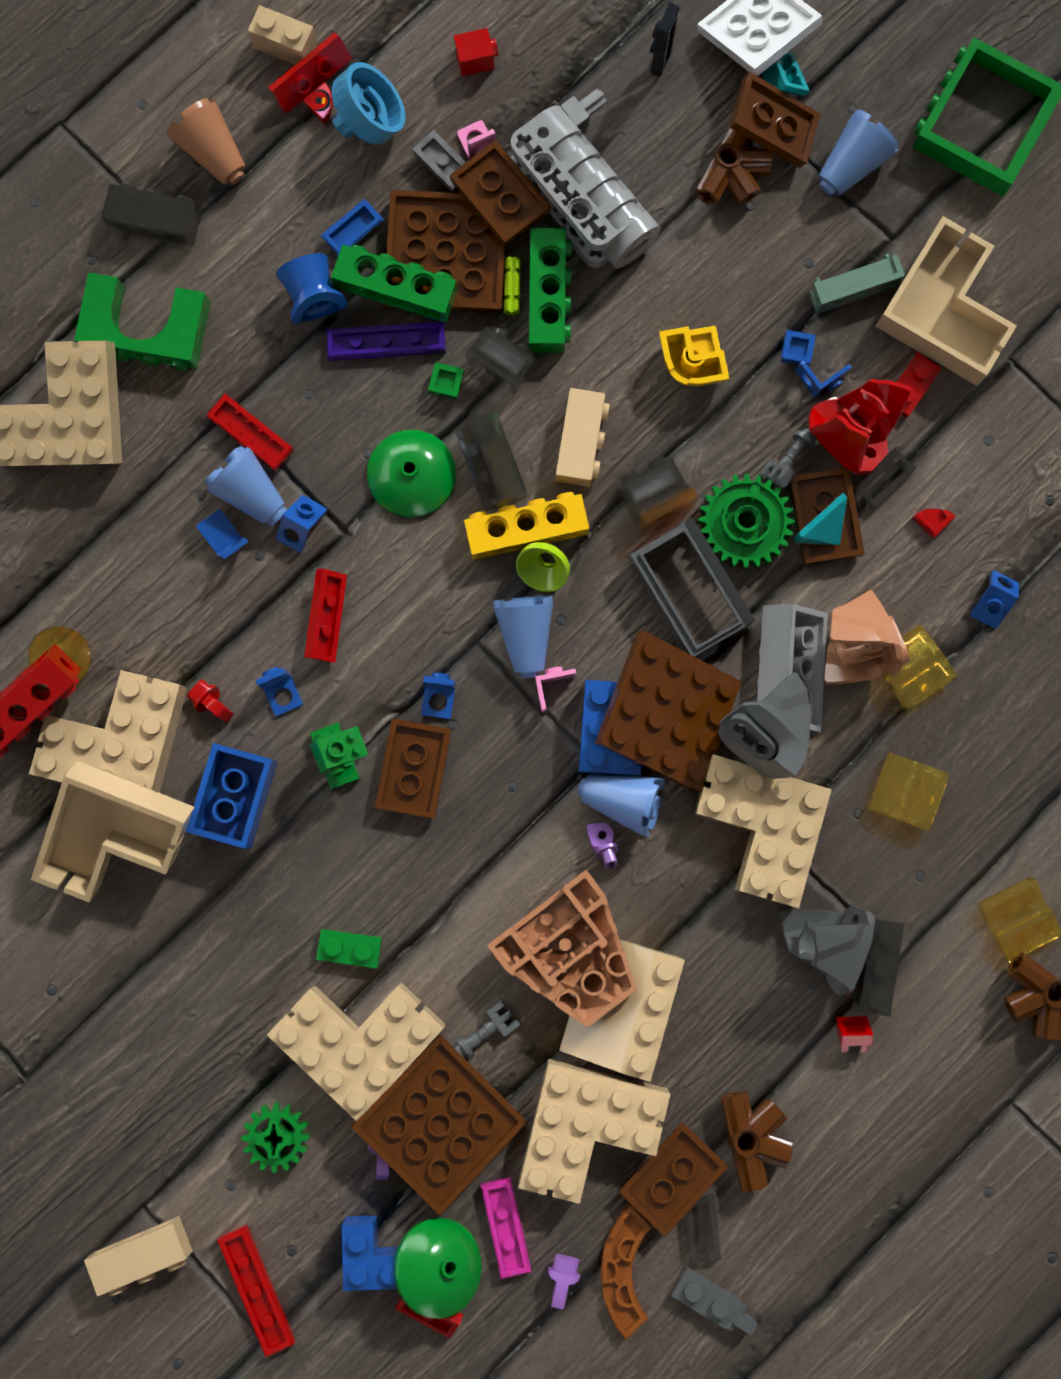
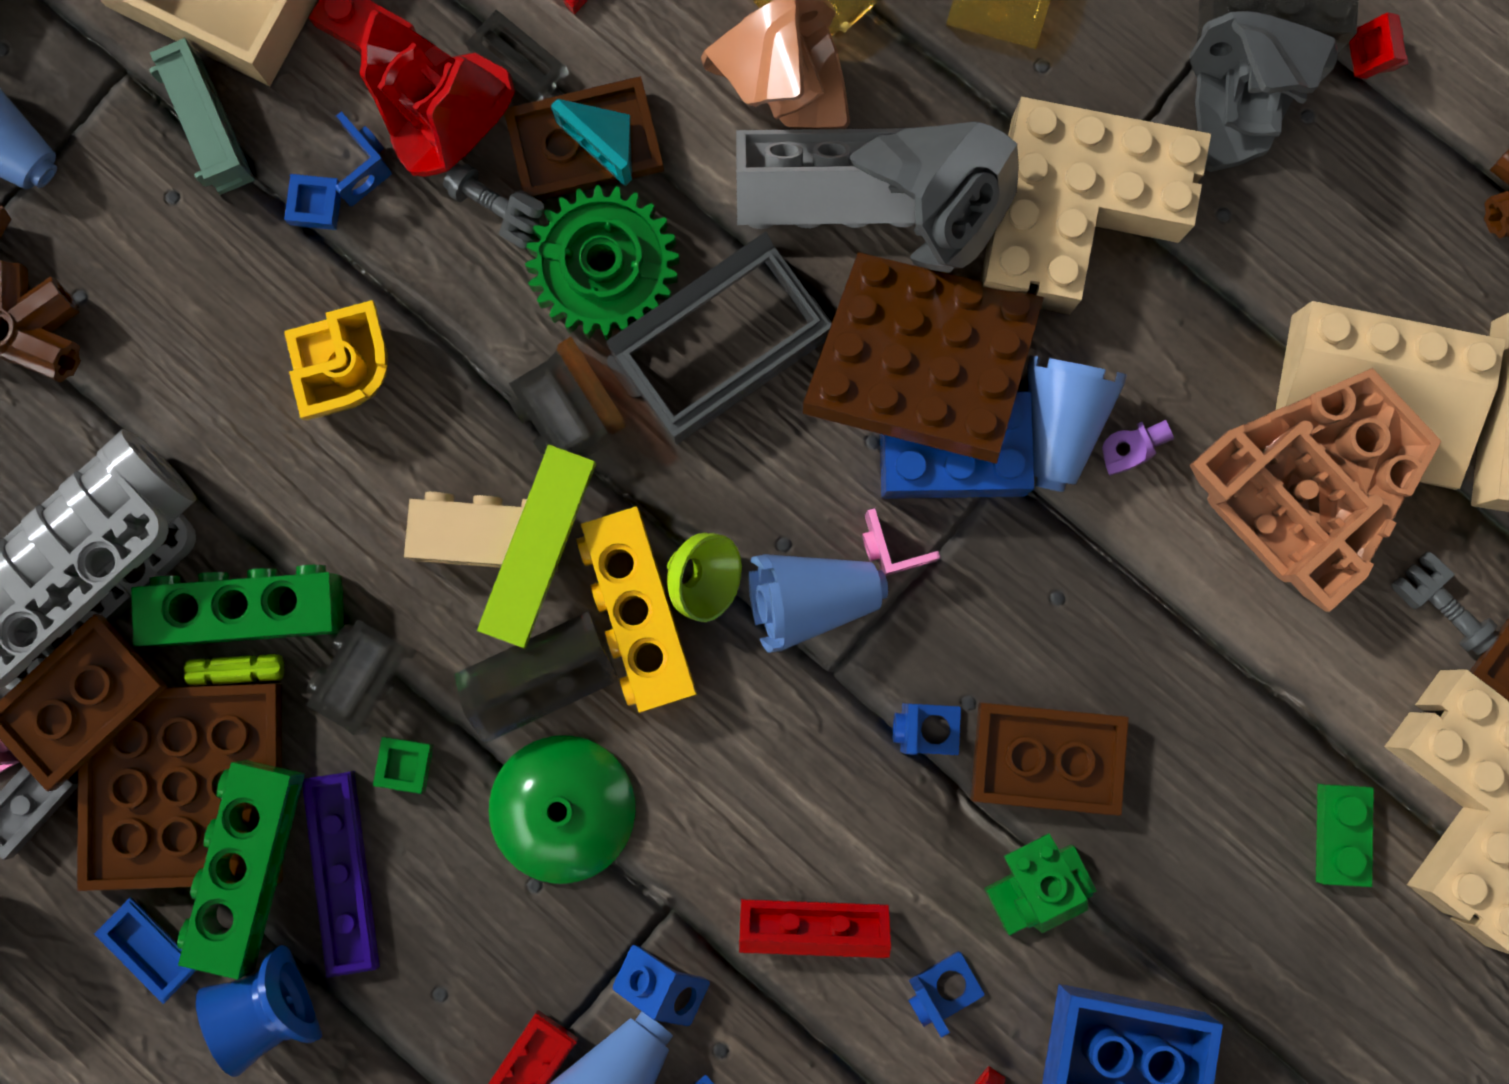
camera: 95 degrees left, 0 degrees up
(569, 466) = (536, 546): none -> lime tile

